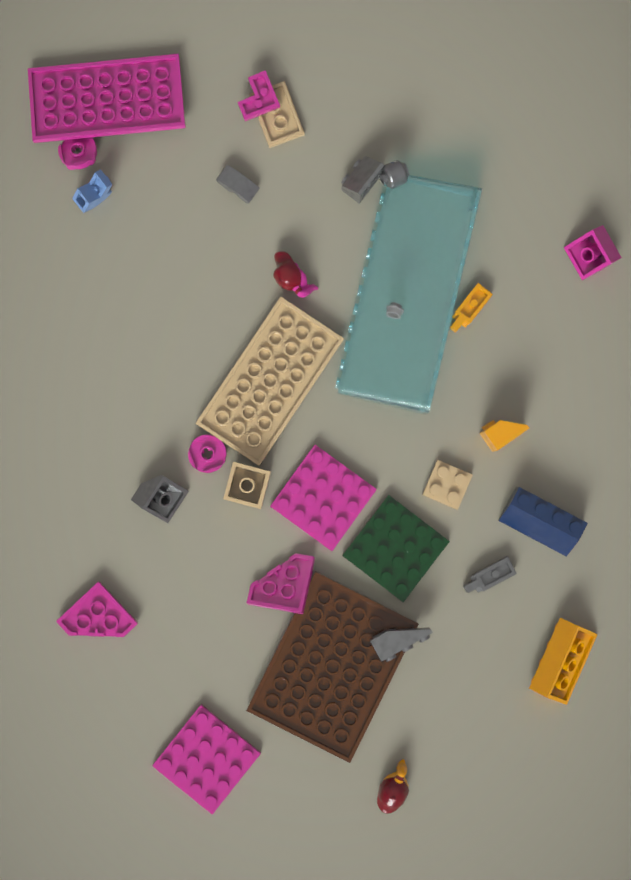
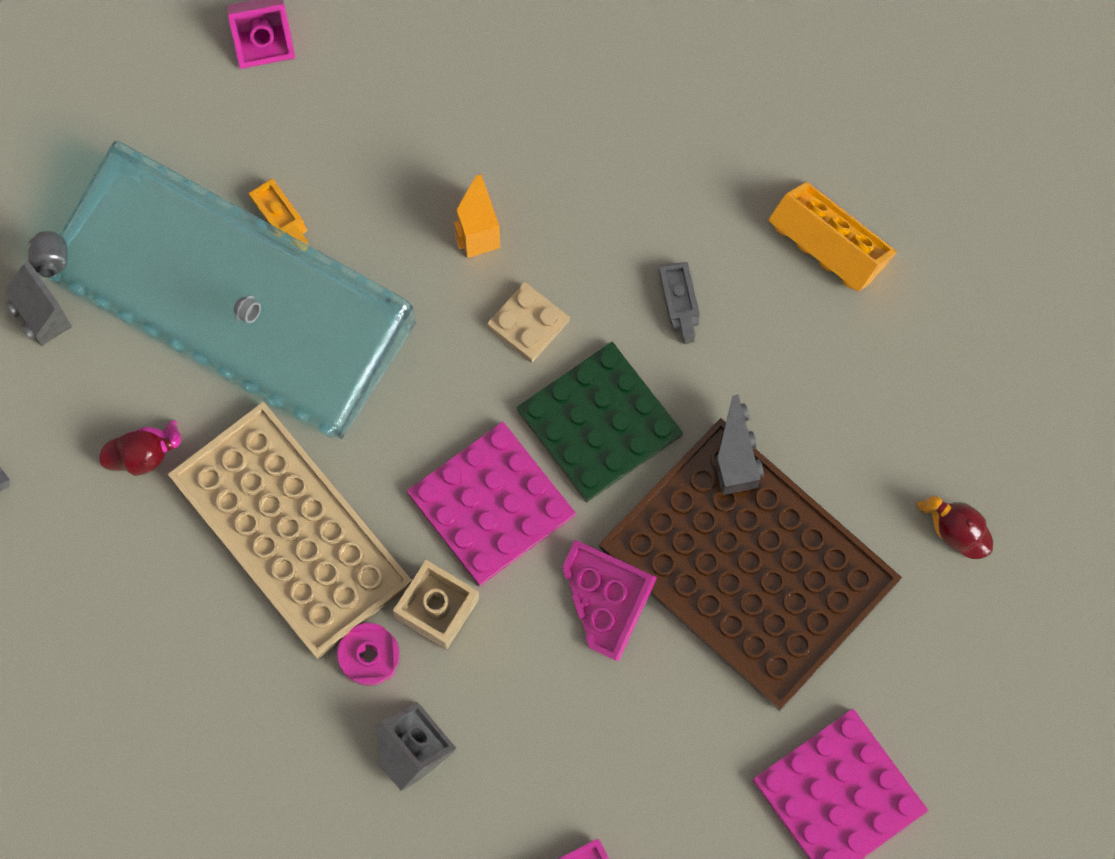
camera: 70 degrees left, 15 degrees down
(542, 521) = (621, 205): dark blue slope -> none

